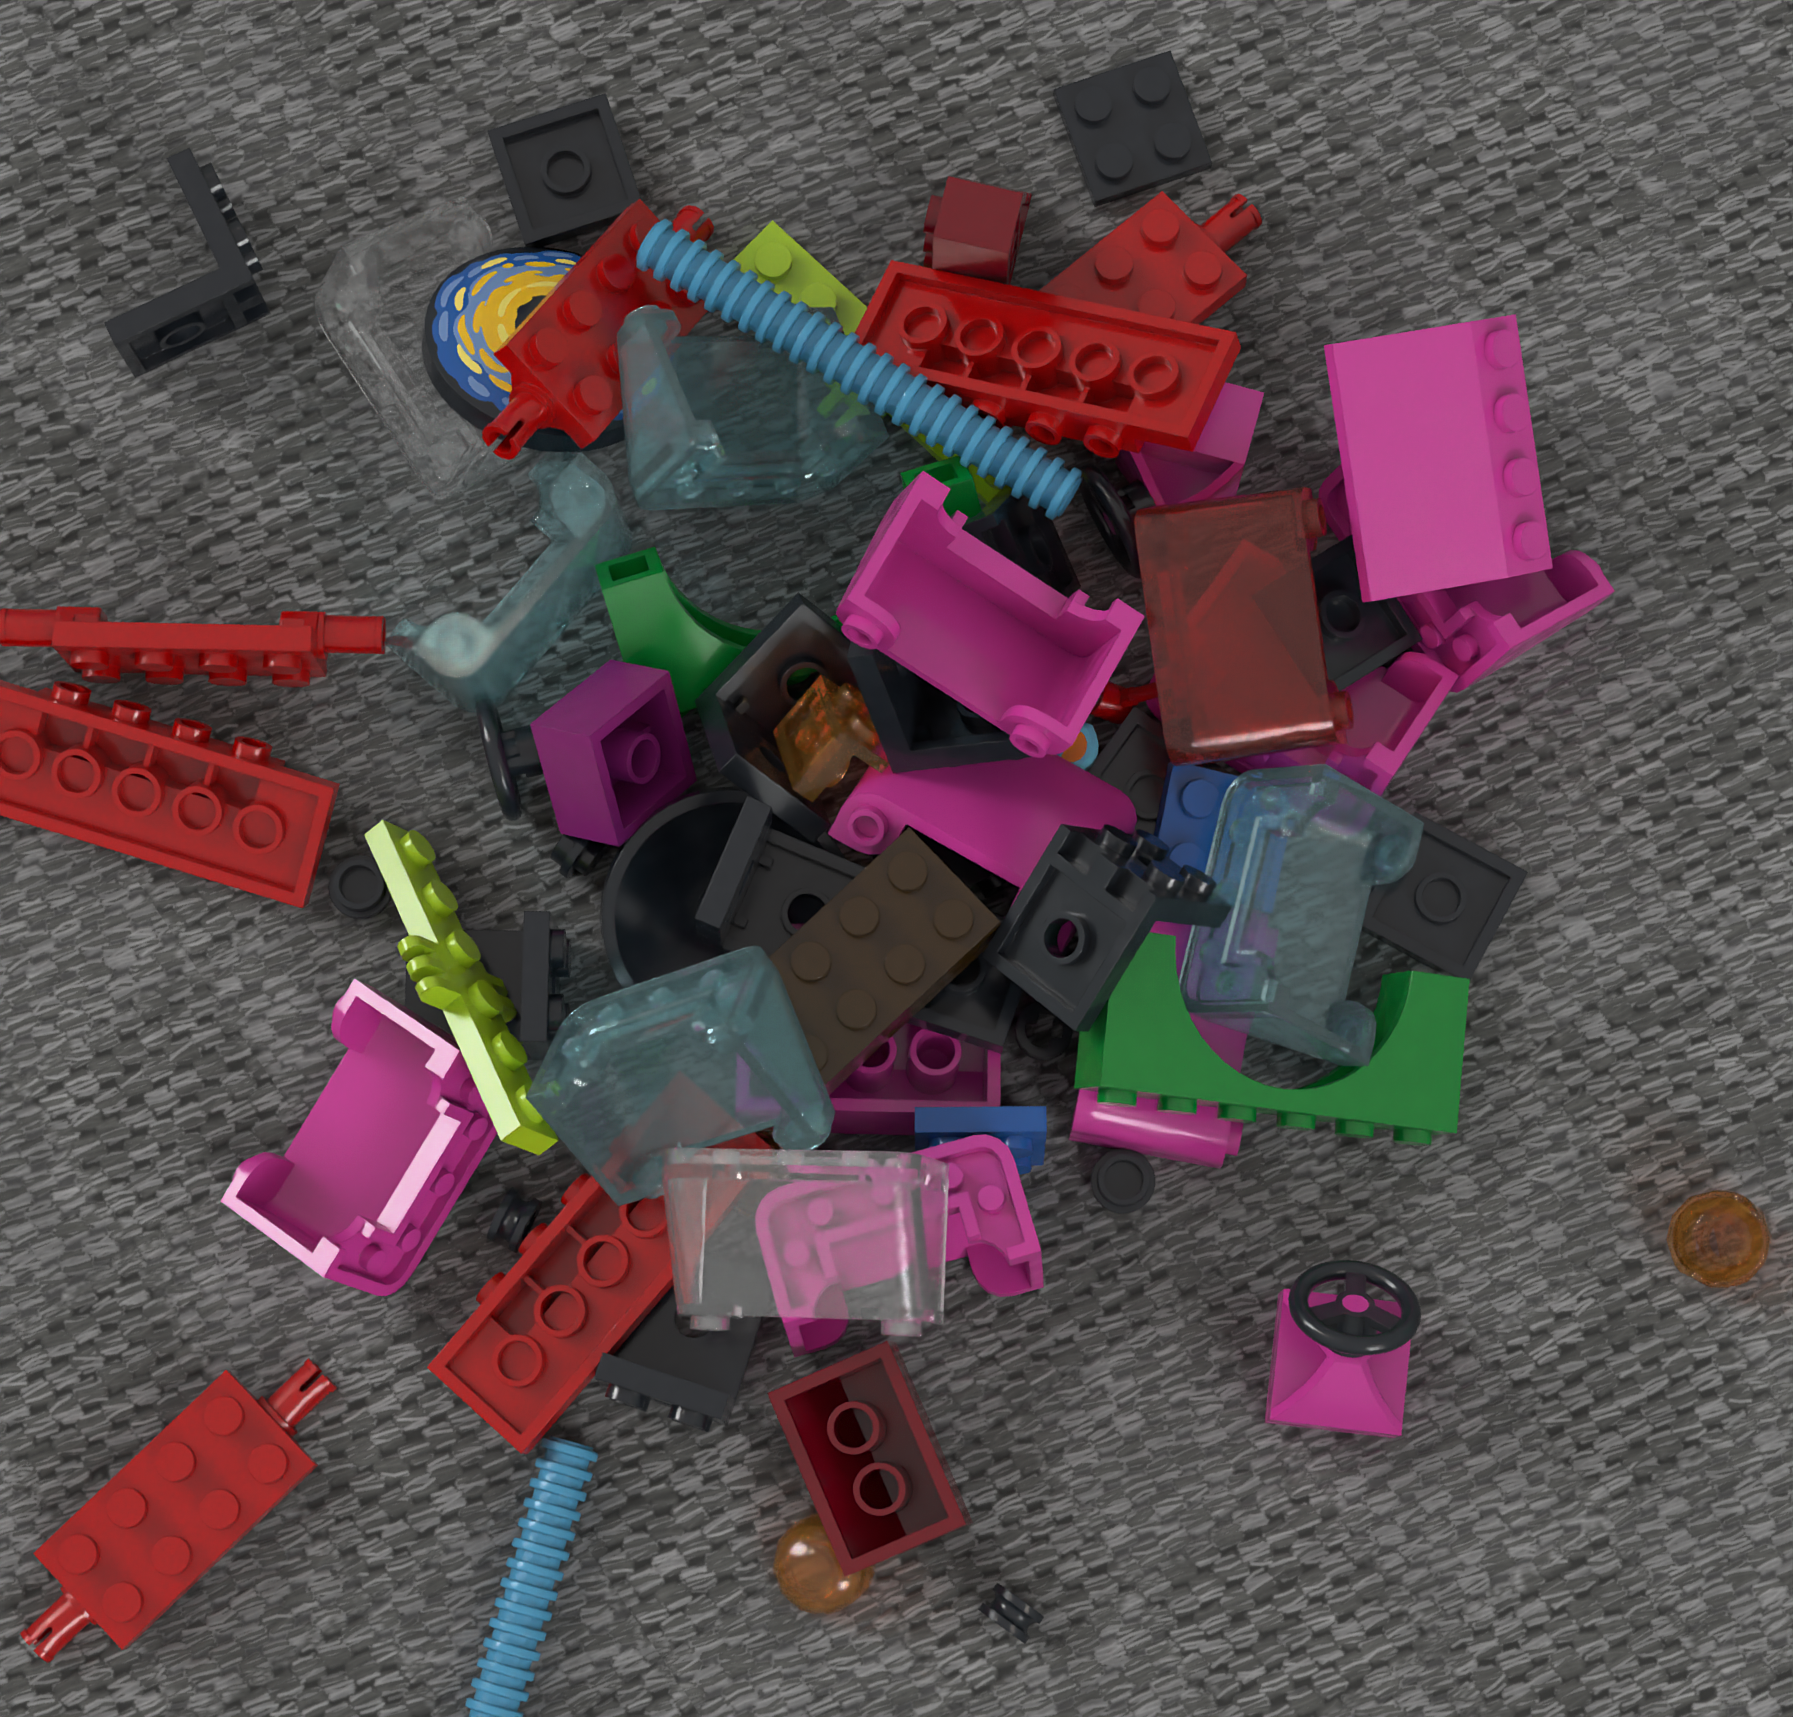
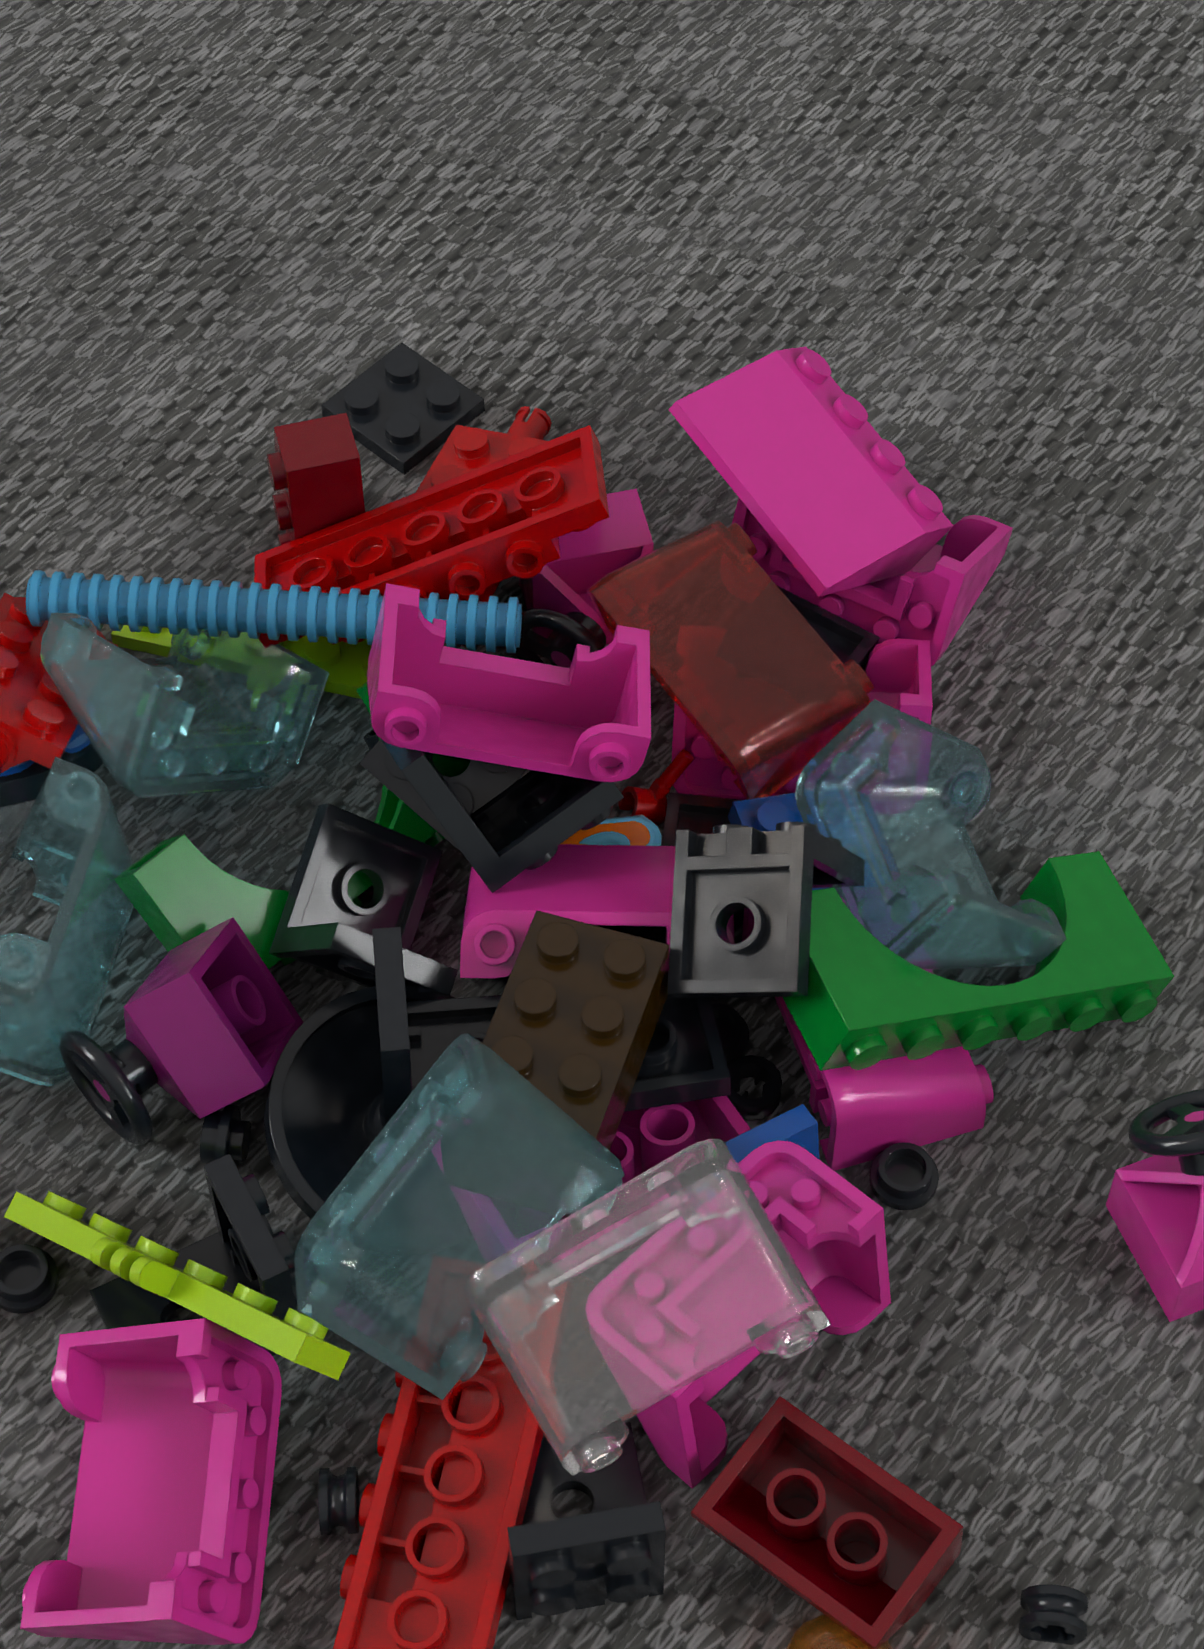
camera: 30 degrees left, 25 degrees down
(823, 736) = (416, 899): clear orange bracket -> none
(1445, 903) = (1032, 816): black plate -> none

